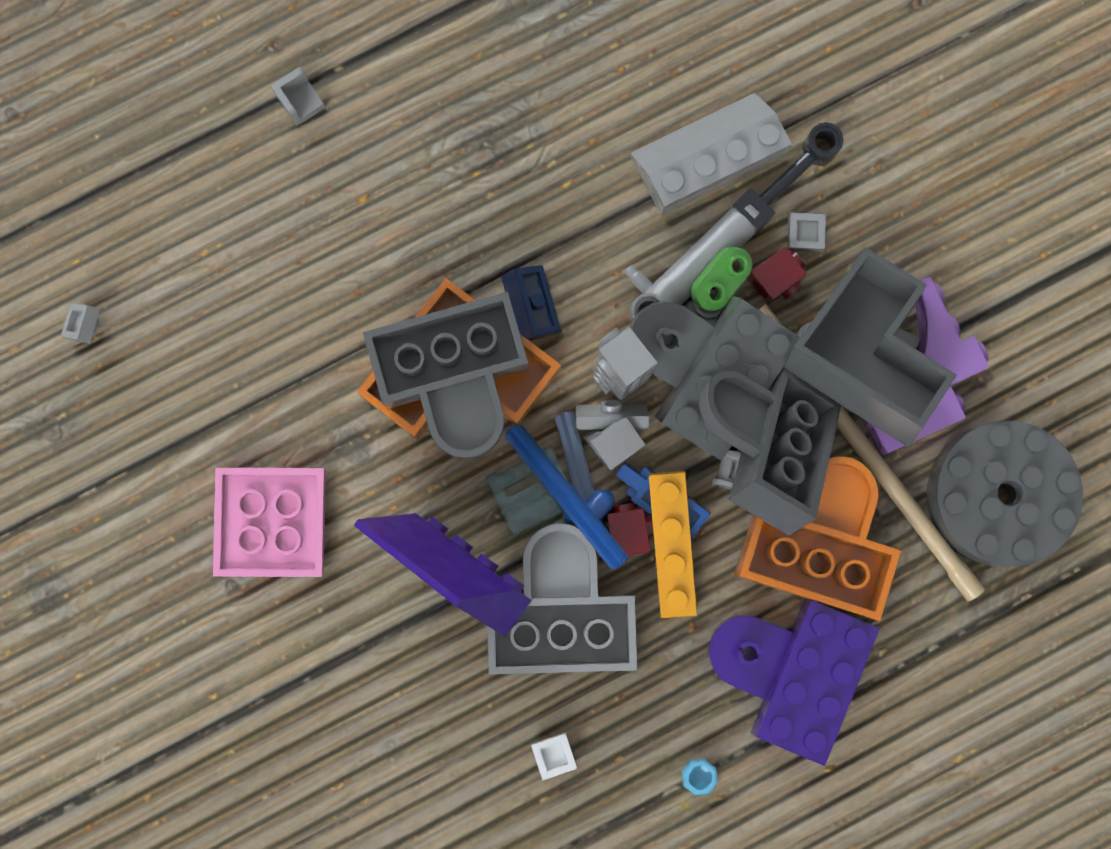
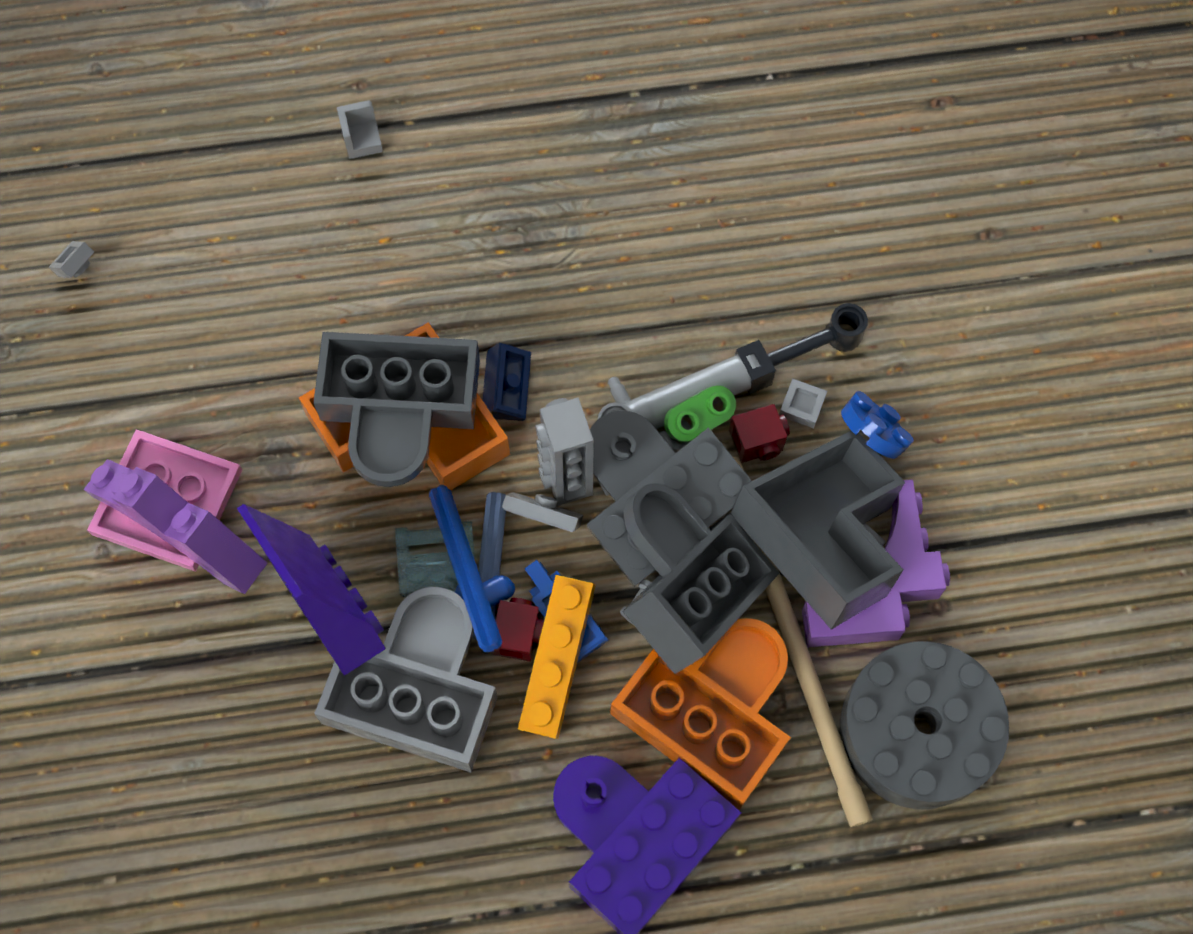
camera: 25 degrees right, 15 degrees down
(290, 546) = (176, 521): none -> medium lavender arch
(554, 756) = (351, 833): white plate -> none
(615, 442) = (536, 534): light grey panel -> none
(699, 776) = (495, 911): medium azure tile -> none
(711, 152) = (734, 304): light grey slope -> none
(882, 233) = (878, 424): none -> blue plate

